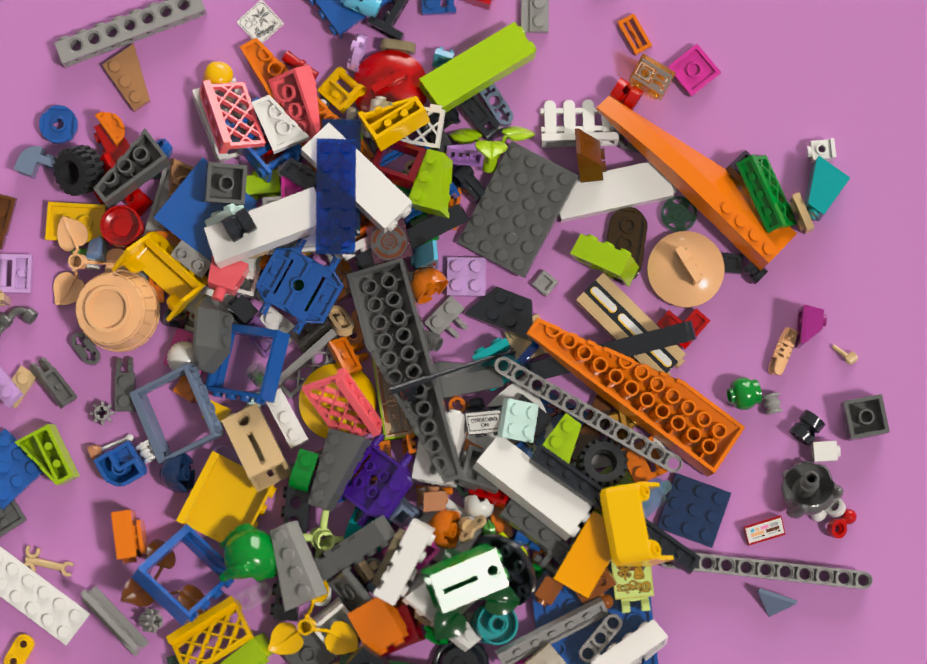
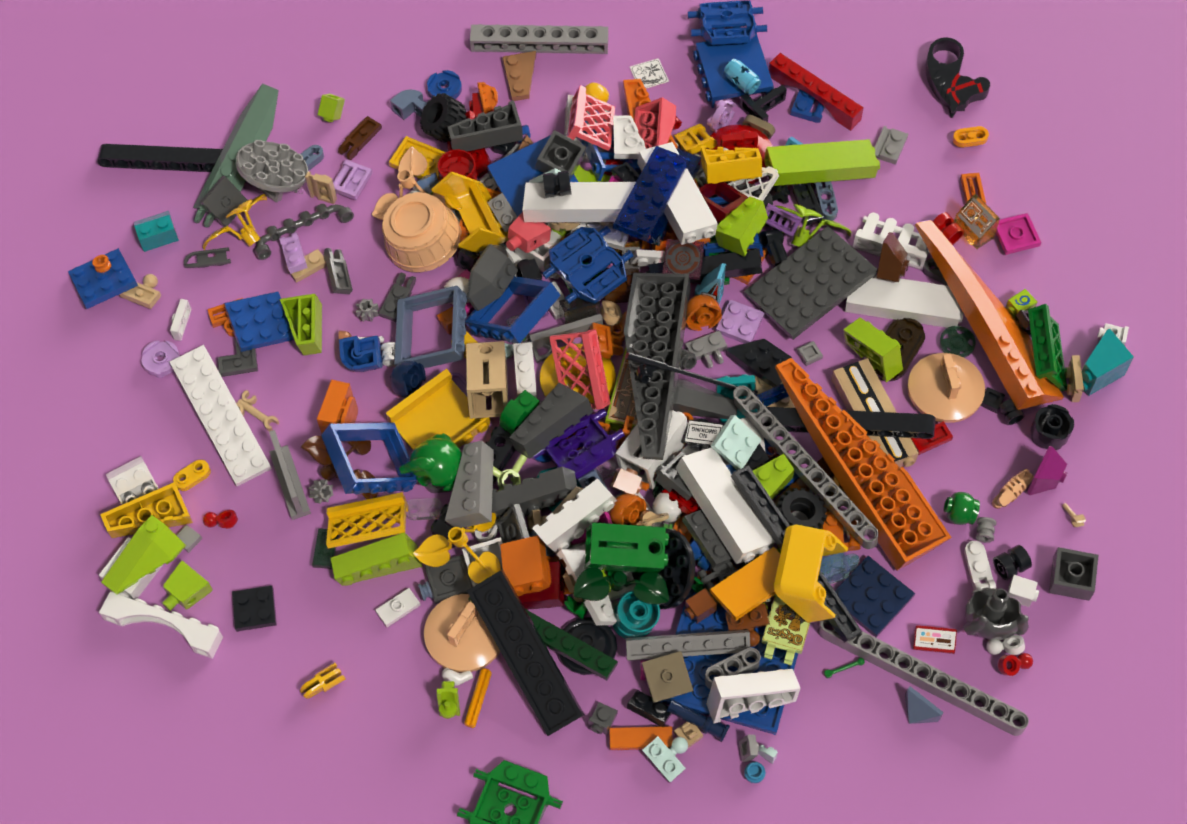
camera: 25 degrees right, 20 degrees down
(89, 346) = (376, 258): dark grey beam -> none
(706, 578) = (828, 673): none -> green hinge
(725, 151) = (1020, 301): none -> lime brick
(778, 442) = (978, 566): none -> white plate
(805, 266) = (1052, 426): none -> black brick

